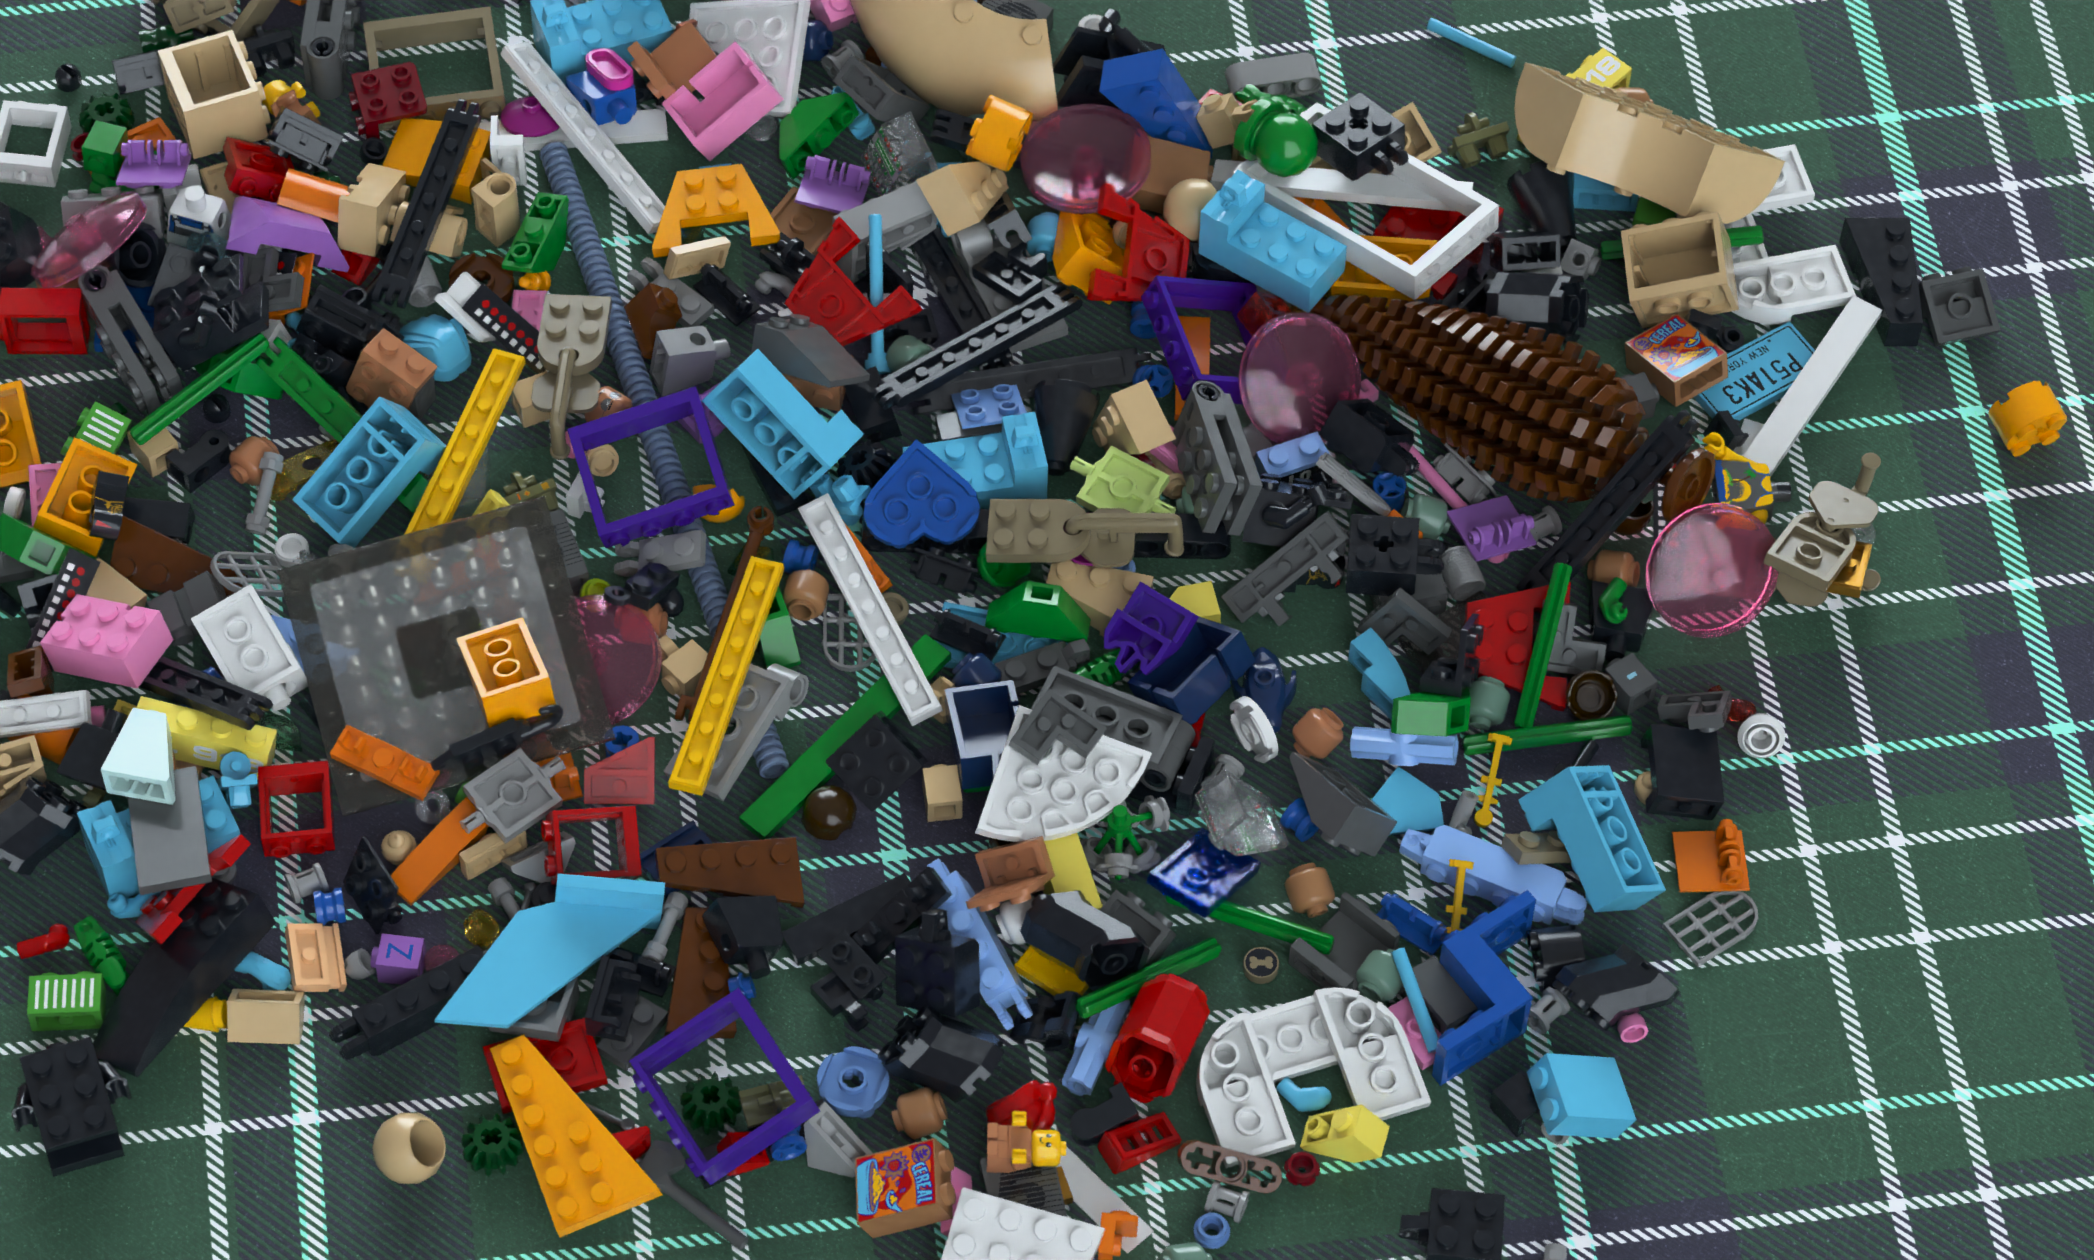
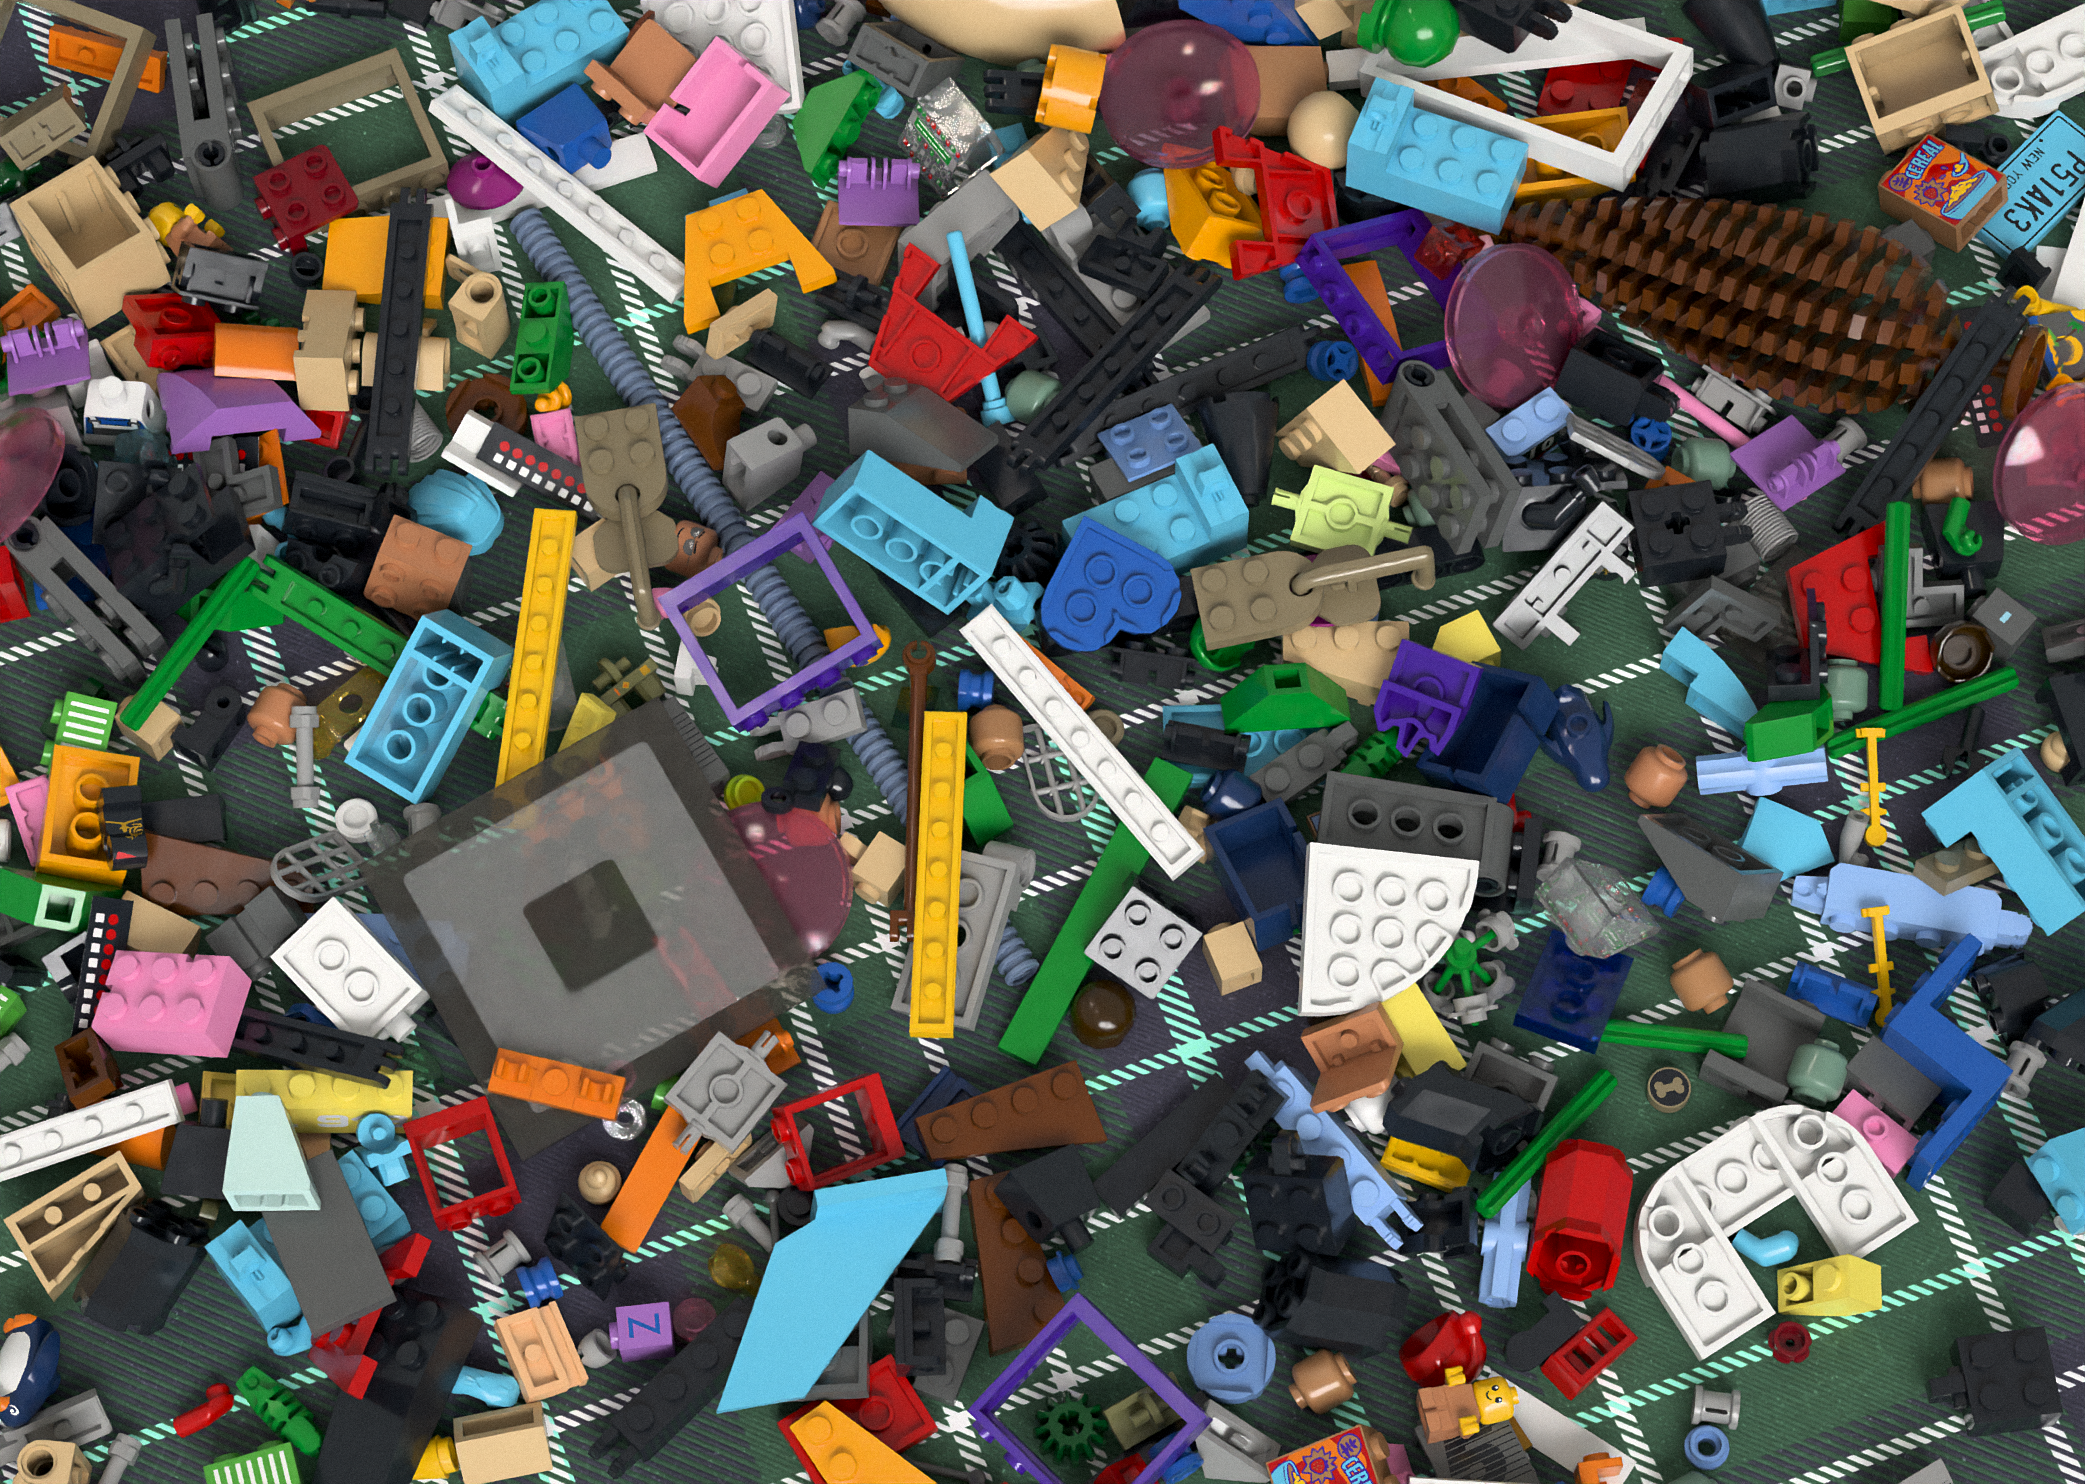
camera: 10 degrees left, 10 degrees up
(496, 740) = (691, 1026): black plate -> none
(506, 672) = (676, 938): light orange slope -> none
(609, 69) = (567, 101): dark pink tile -> none
(623, 777) = (845, 1028): red wing -> none
(1059, 720) = (1362, 853): dark grey plate -> none
(1252, 1183) = (1723, 1375): beam -> none
(1253, 729) = (1581, 790): white tile -> none
(1416, 999) = (1870, 1098): medium azure bar -> none

